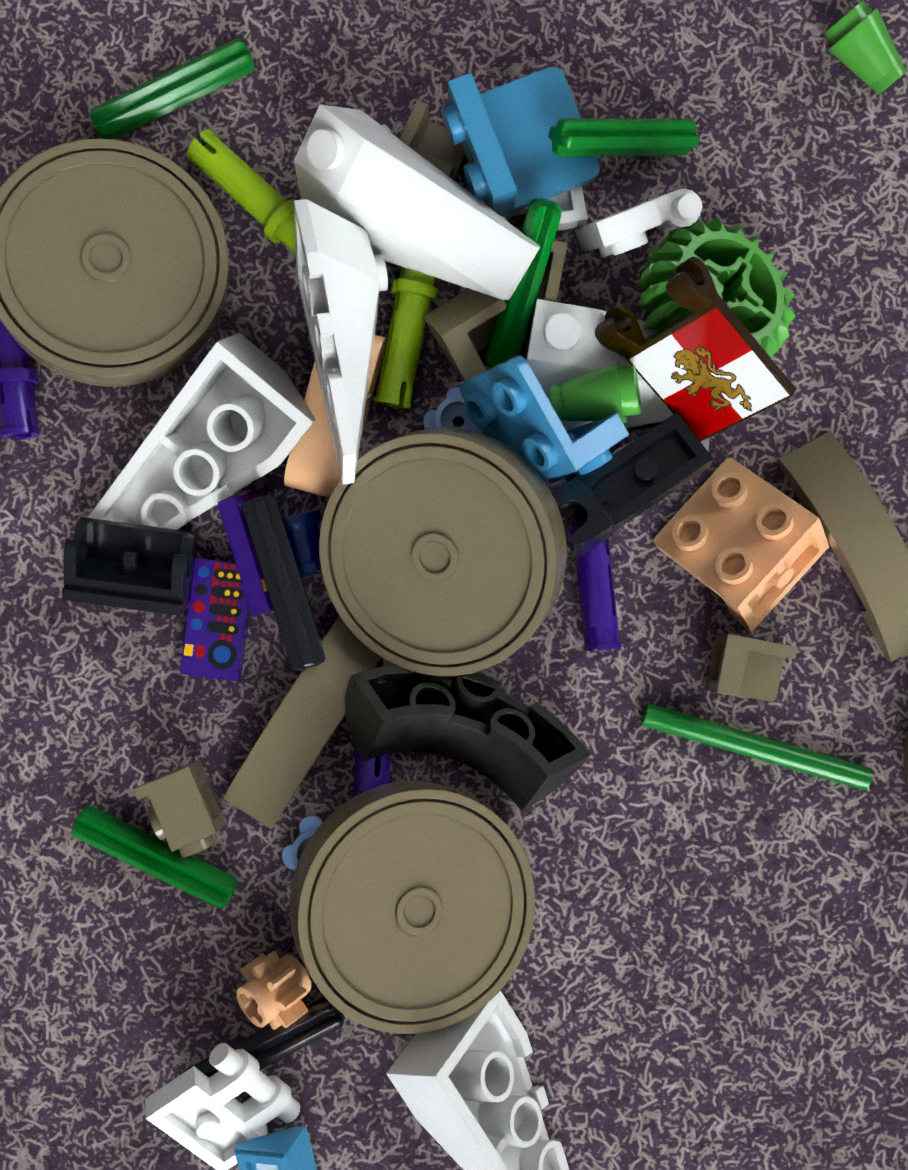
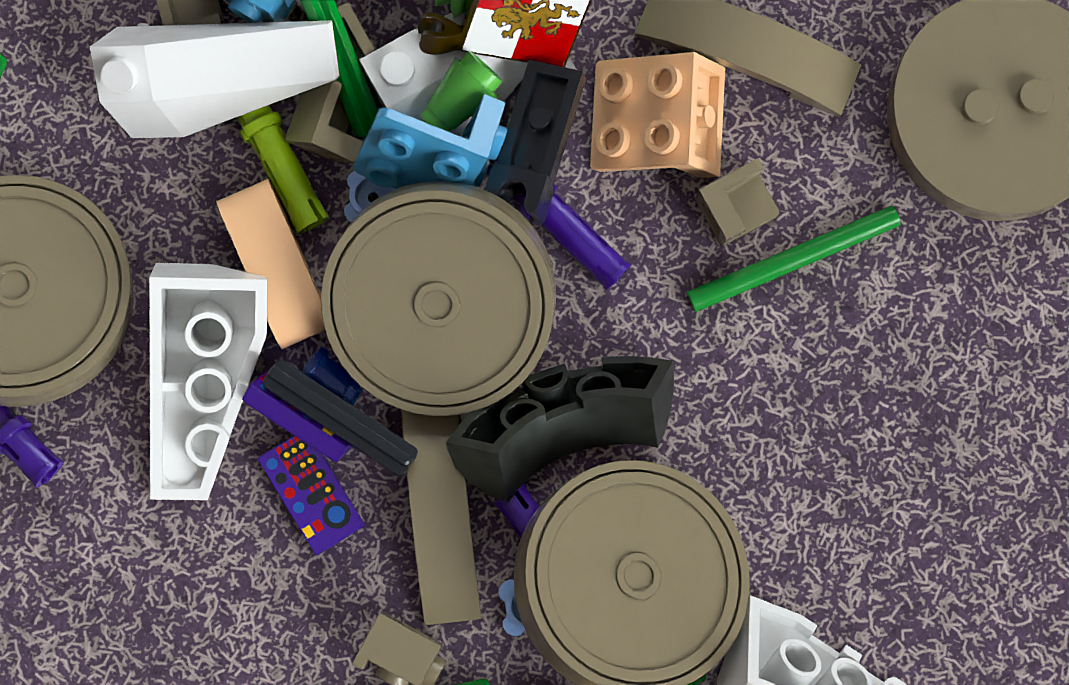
camera: 35 degrees left, 5 degrees down
(129, 566) = (213, 502): black hinge -> none
(245, 187) = (117, 153): lime pin -> none
(340, 303) = (213, 176): white wedge -> none

